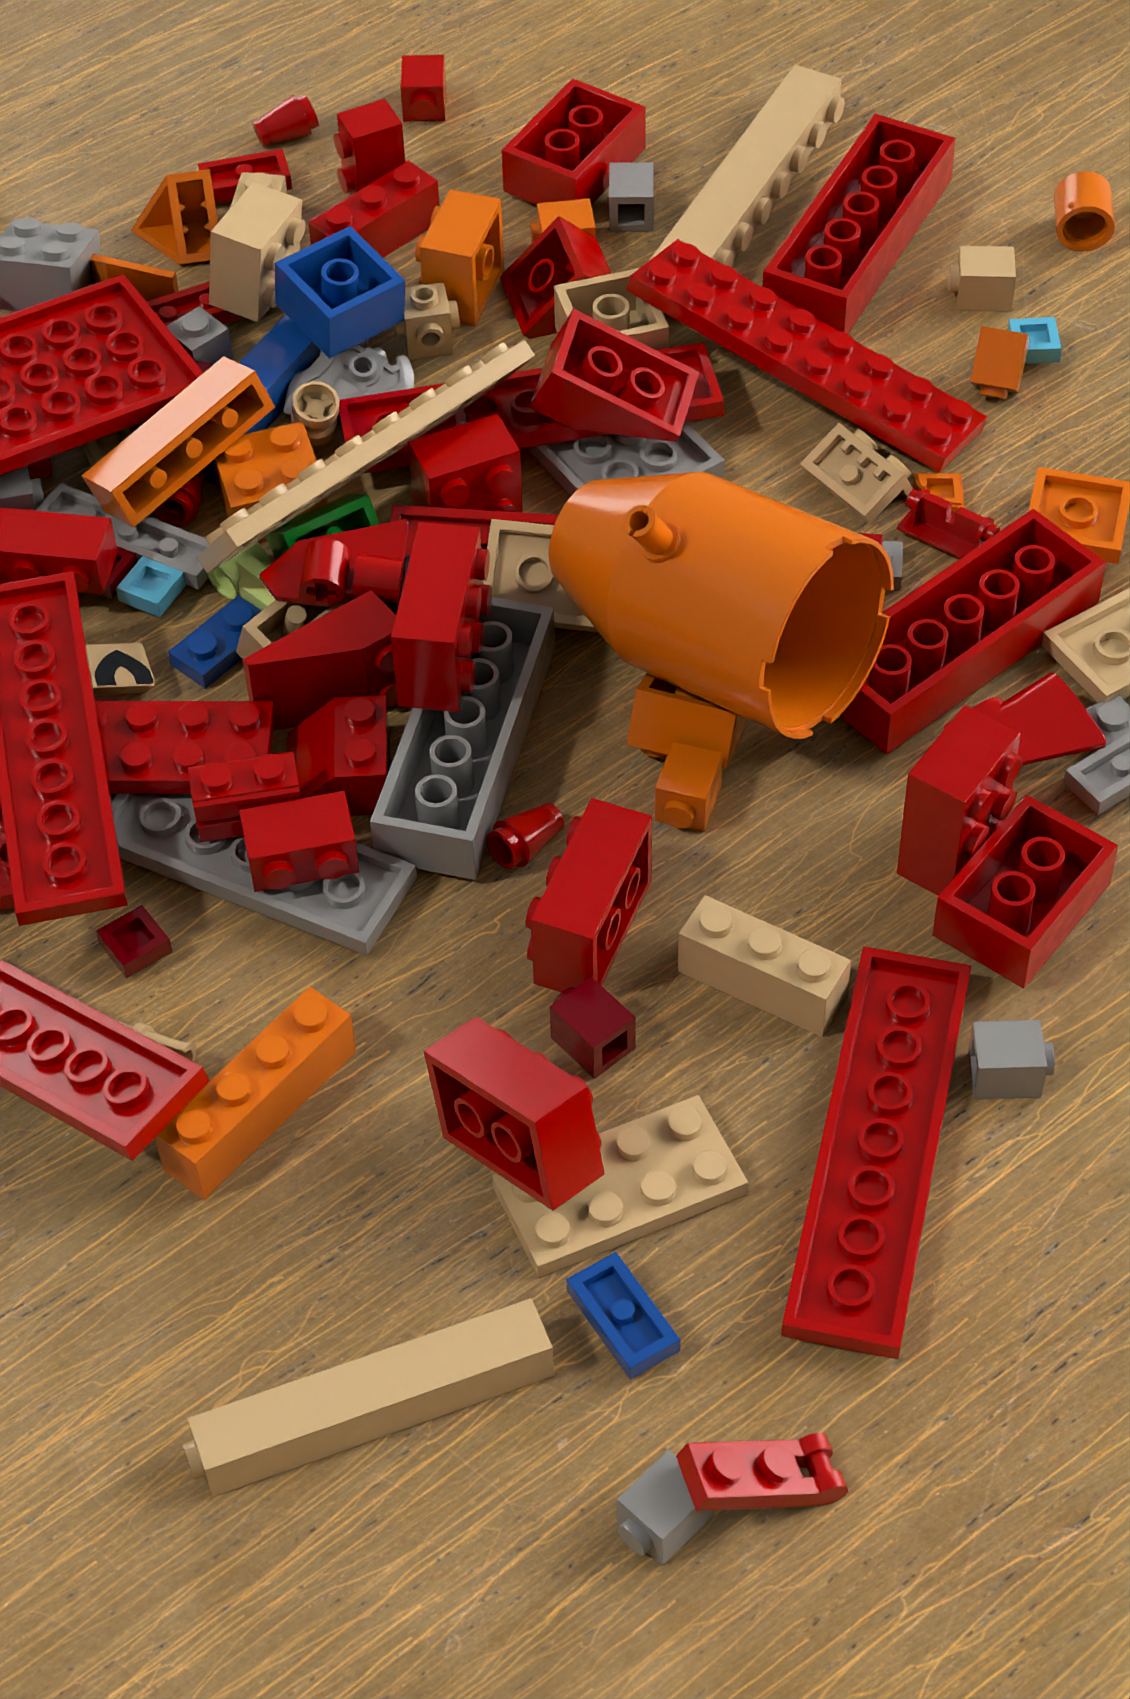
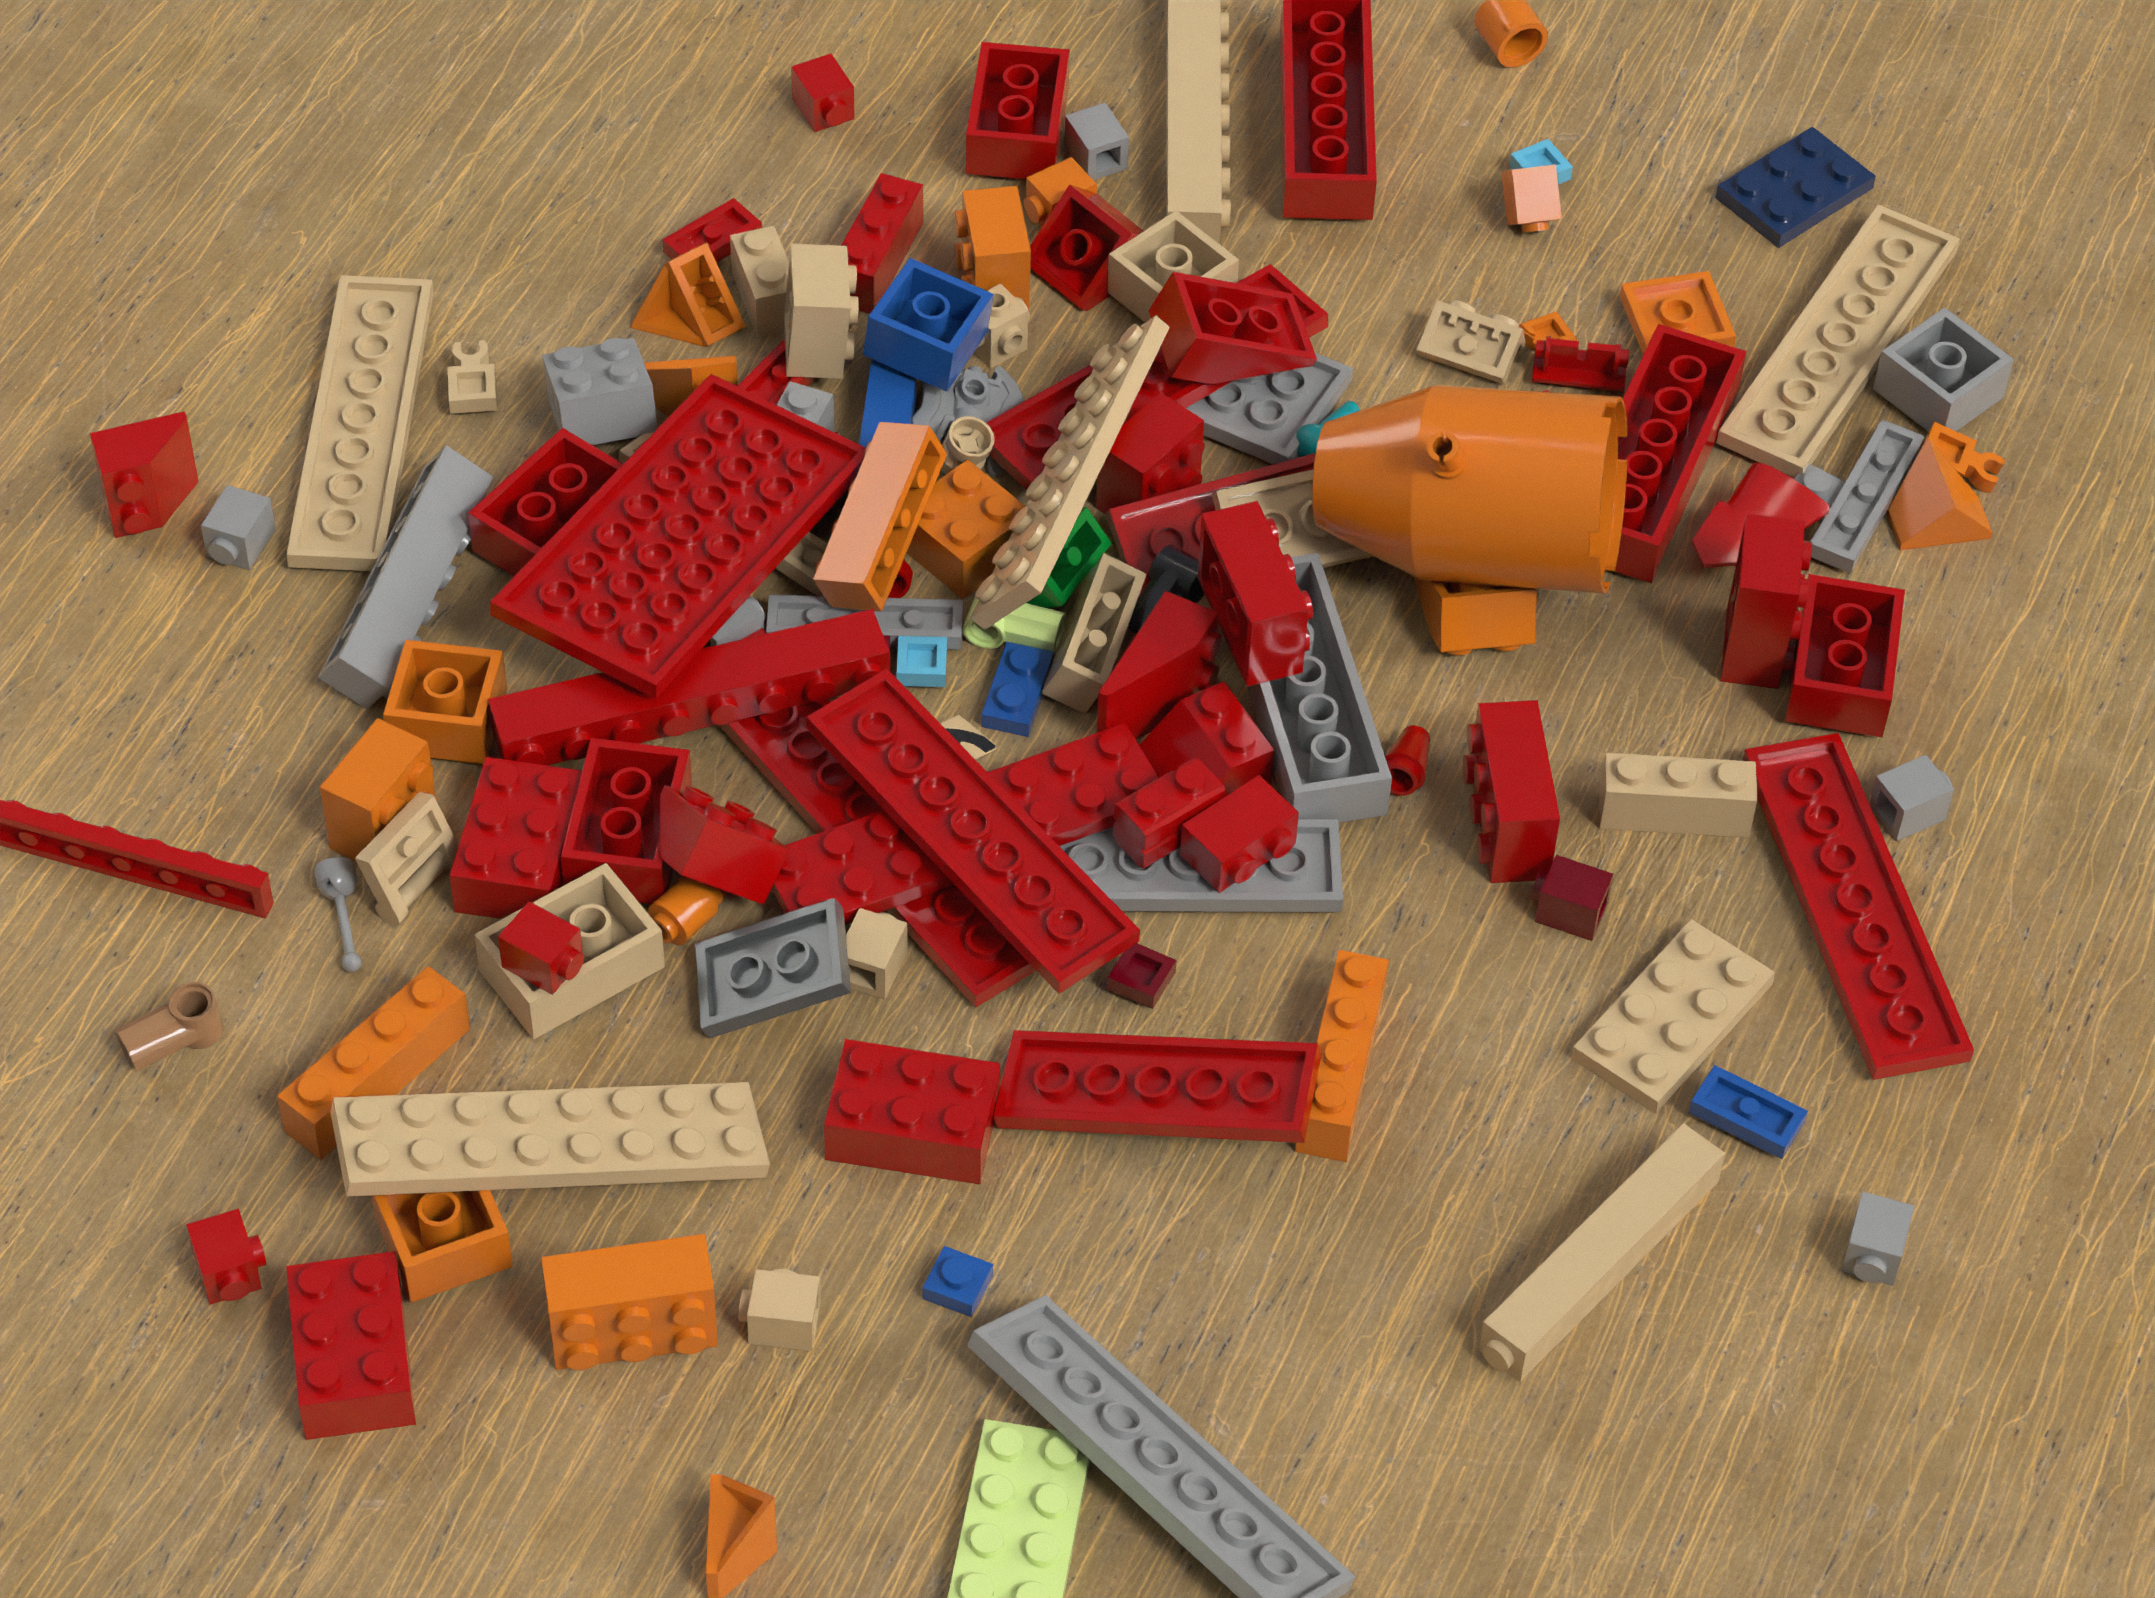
camera: 30 degrees left, 0 degrees up
(286, 121) = (713, 167): red cone -> none
(341, 566) = (1118, 580): red panel -> none
(368, 144) = (835, 175): red brick -> none
(515, 1112) = (1581, 983): red brick -> none
(688, 786) = (1515, 666): orange brick -> none
(761, 1473) = (1937, 1181): red plate -> none
(808, 354) = (1365, 244): red plate -> none
(983, 278) = (1463, 121): tan brick -> none

